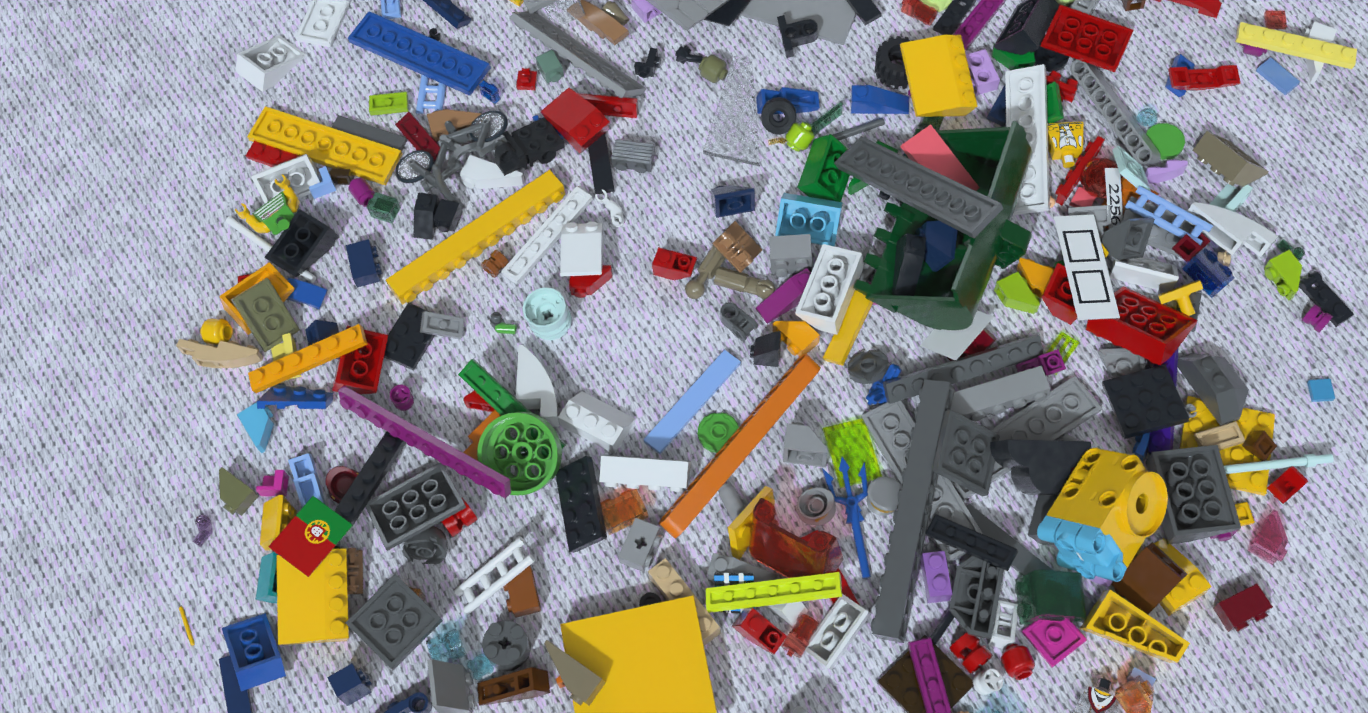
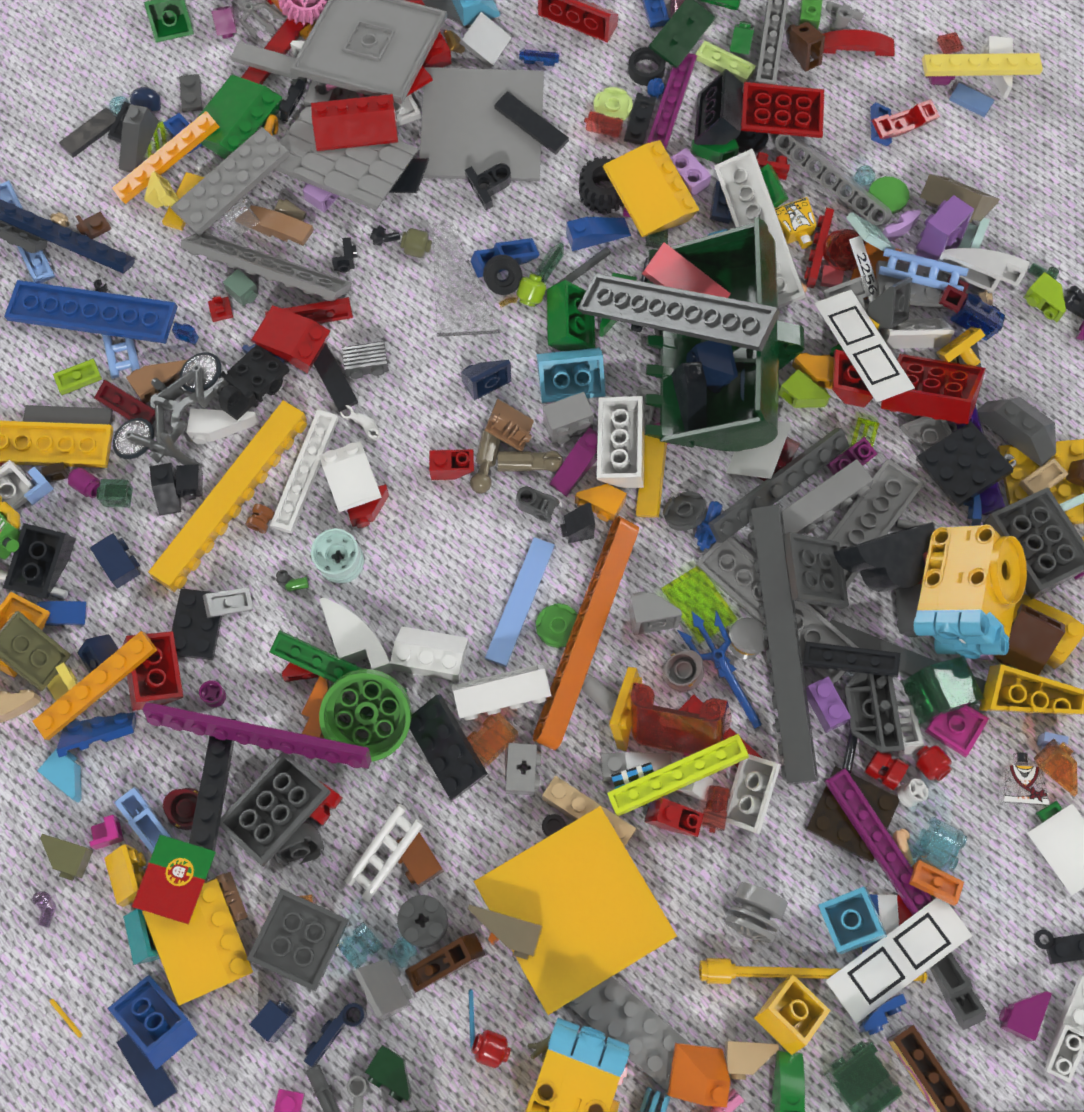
camera: 25 degrees left, 5 degrees up
(1202, 182) = (944, 228): none -> medium lavender brick

